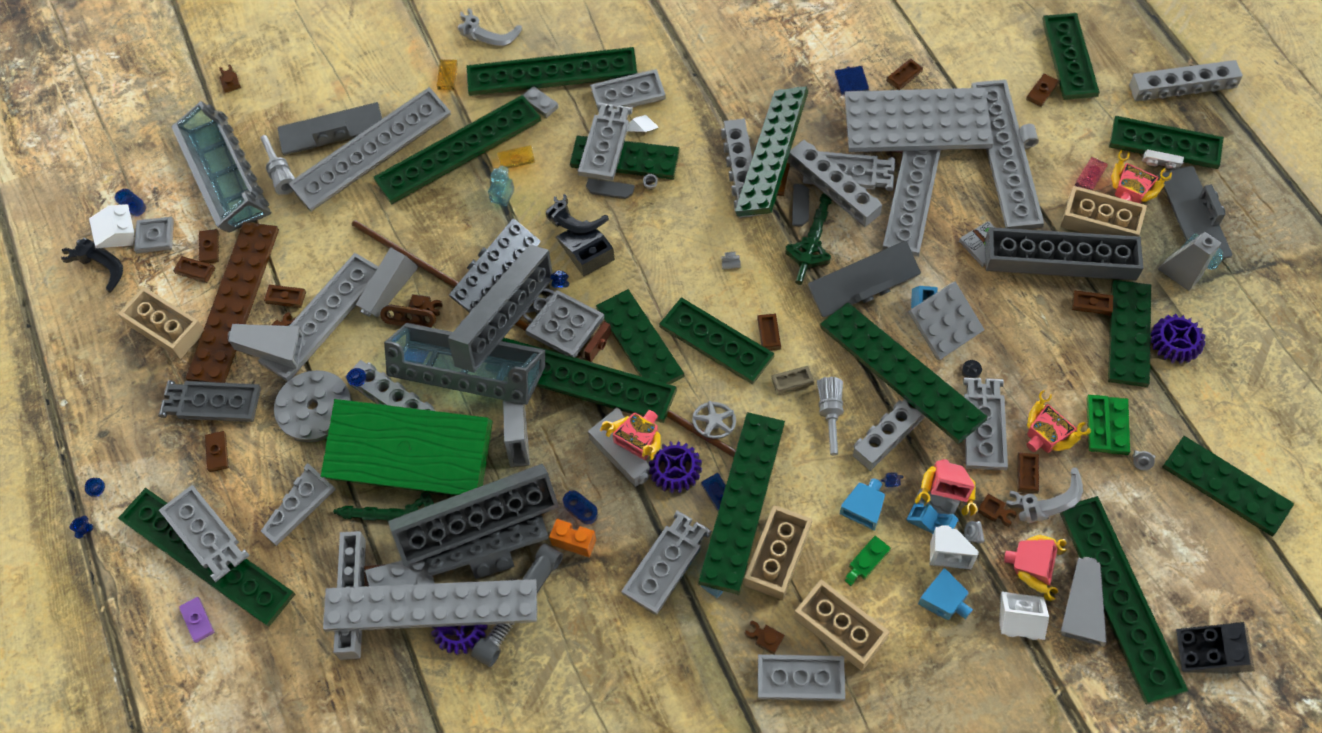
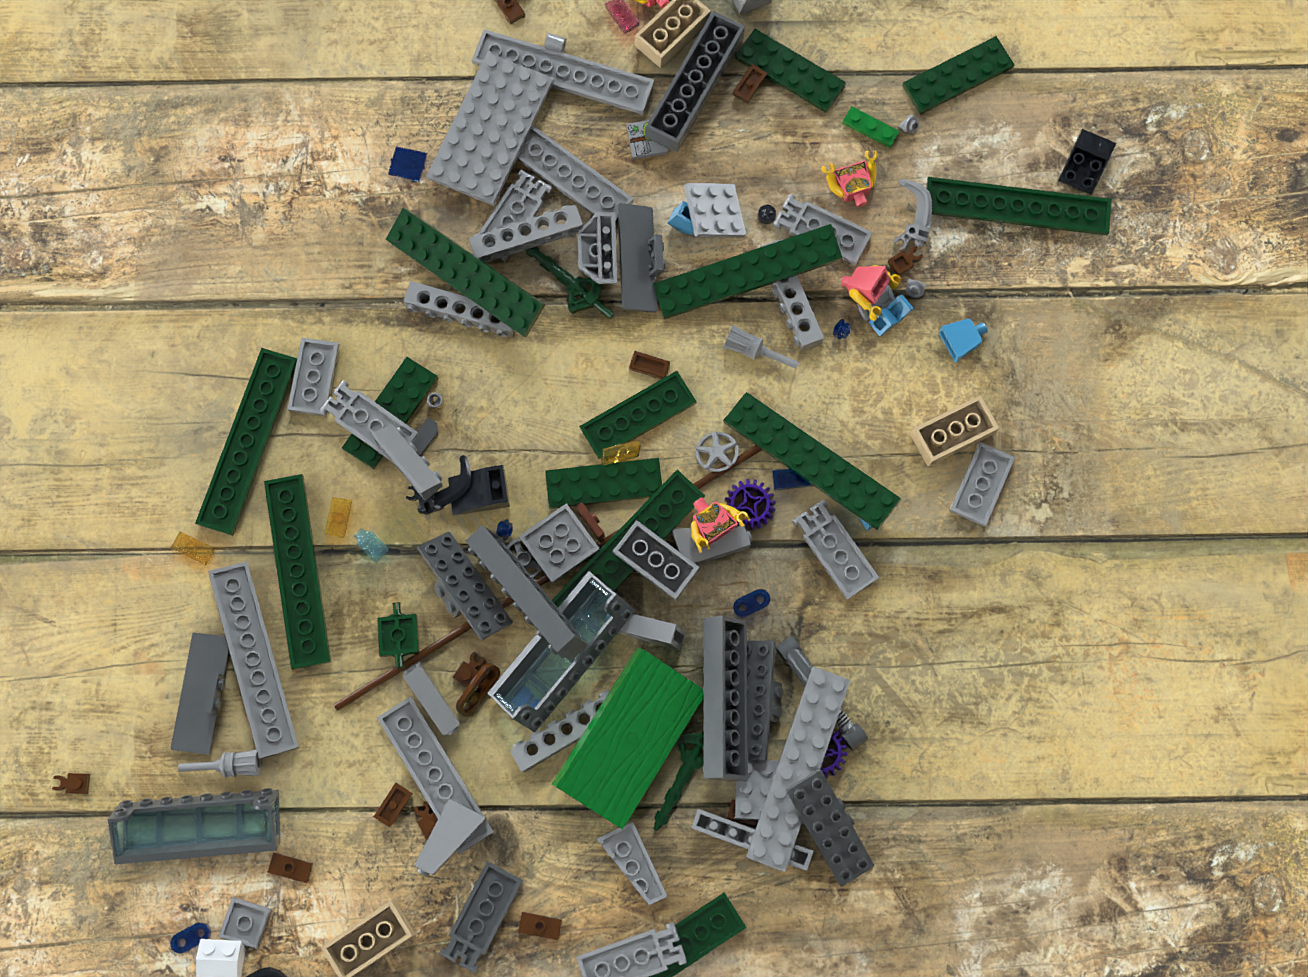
camera: 70 degrees left, 15 degrees up
(194, 269) = (313, 890): reddish brown plate -> none
(232, 302) = (372, 860): reddish brown plate -> none
(294, 400) = (511, 819): light grey plate -> none
(360, 380) = (531, 767): clear blue plate -> none
(384, 659) = (830, 827): none -> dark grey bracket
(432, 239) = (398, 635): none -> dark green plate
(474, 32) = (154, 498): light grey piece -> none
(541, 102) = (278, 467): light grey plate -> none
(572, 540) = (786, 615): orange brick -> none
(578, 400) = (656, 560): none -> light grey brick
(579, 173) = (408, 462): none -> light grey slope
(641, 124) = (359, 379): white sticker -> none
(672, 338) = (620, 452): none -> clear yellow plate
(730, 261) = (558, 365): light grey plate -> none
(768, 638) = (935, 495): reddish brown plate -> none
(778, 552) = (869, 450): tan brick -> none
(792, 380) = (709, 367): dark tan plate -> none
(800, 205) = (526, 276): dark grey piece -> none
(853, 242) = (598, 248): none -> light grey wedge
(864, 504) = (854, 361): dark azure torso -> none
(867, 560) = (903, 384): green plate -> none
(904, 74) = (428, 113): reddish brown plate -> none
(951, 549) = (924, 315): white slope -> none
(1023, 616) = (1002, 286): white slope -> none
(1028, 473) = (882, 219): reddish brown plate -> none
(1036, 562) = (964, 253): coral torso -> none
(1085, 607) = (1016, 235): light grey slope -> none
(1099, 423) = (863, 140): green plate -> none
(1178, 329) = (820, 29): dark purple gear -> none

